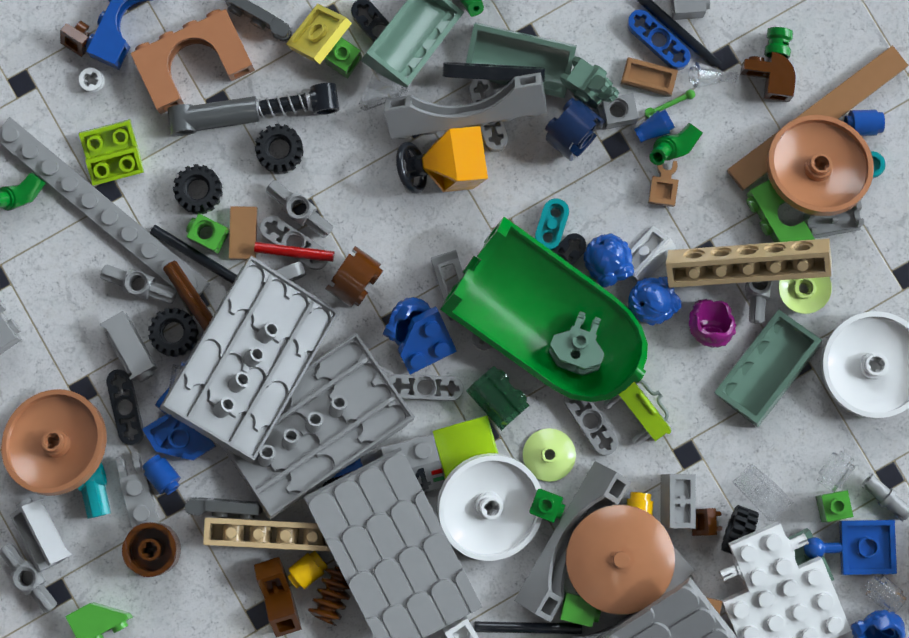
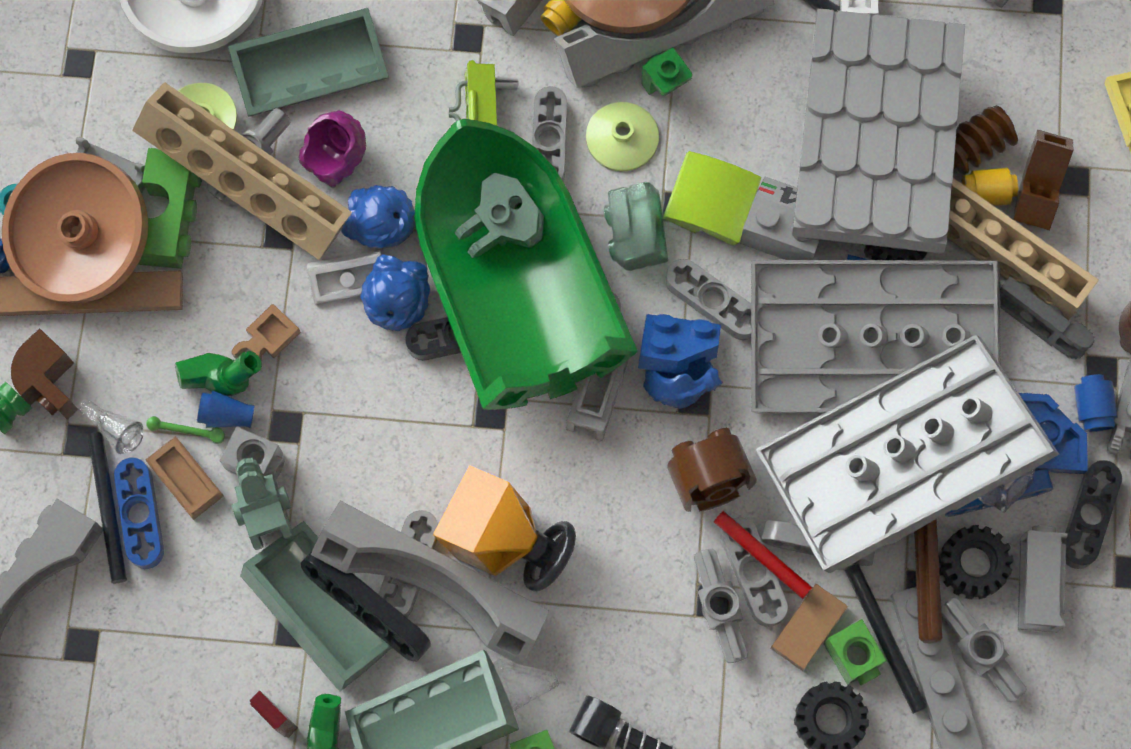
camera: 145 degrees left, 10 degrees down
(275, 133) = (712, 682): black tyre -> none
(493, 530) = (733, 115): white dish -> none
(552, 225) = (429, 381): teal plate -> none
(573, 129) = (322, 466): dark blue brick -> none

